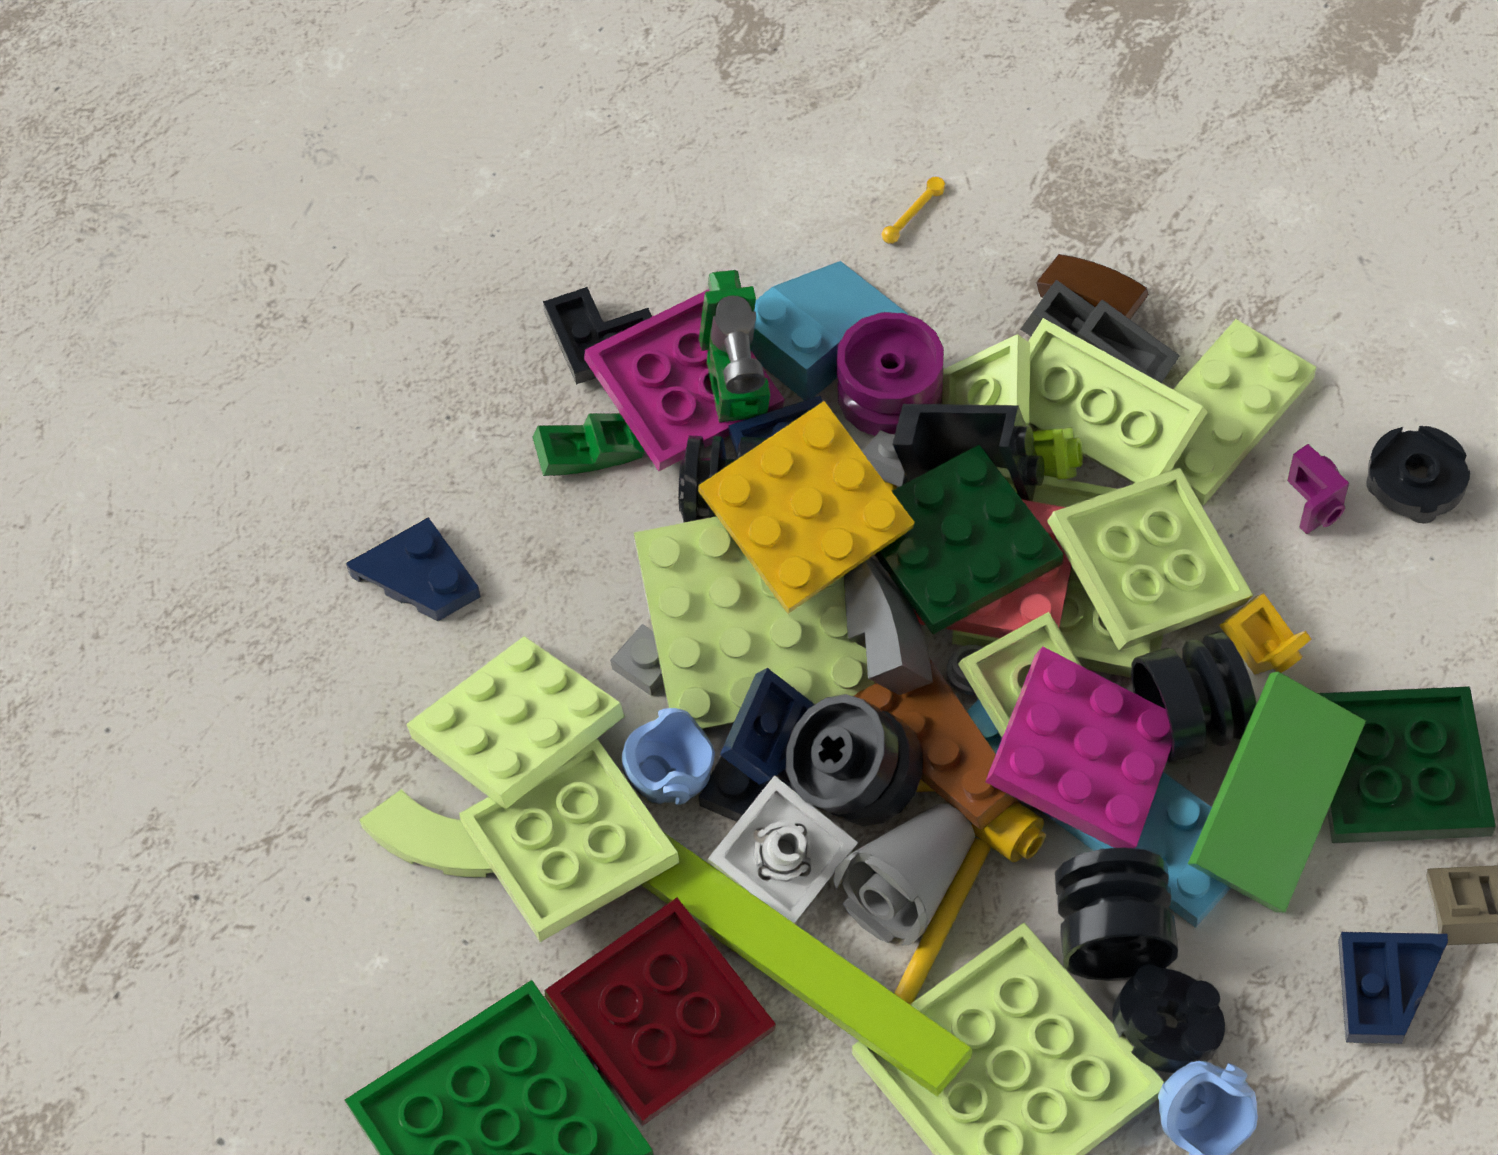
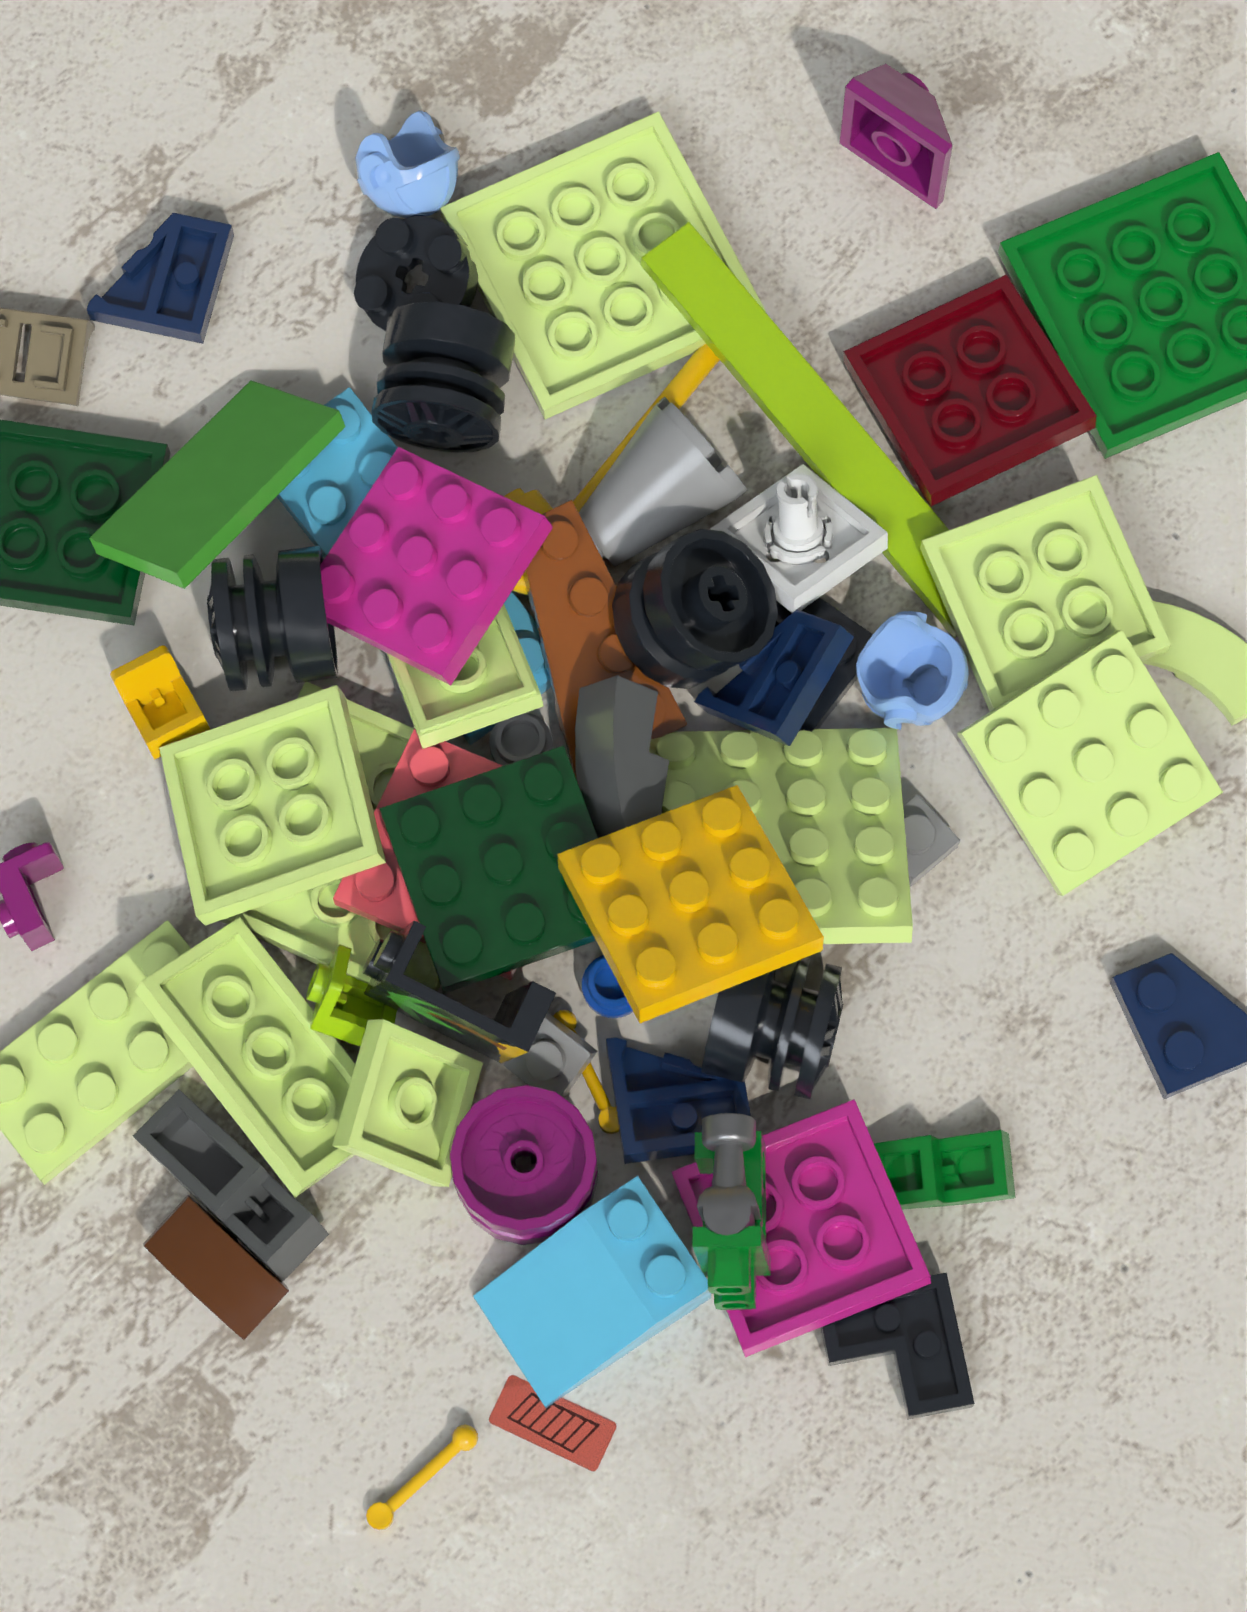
camera: 170 degrees left, 15 degrees up
(816, 254) = (559, 1428): none -> clear red sticker

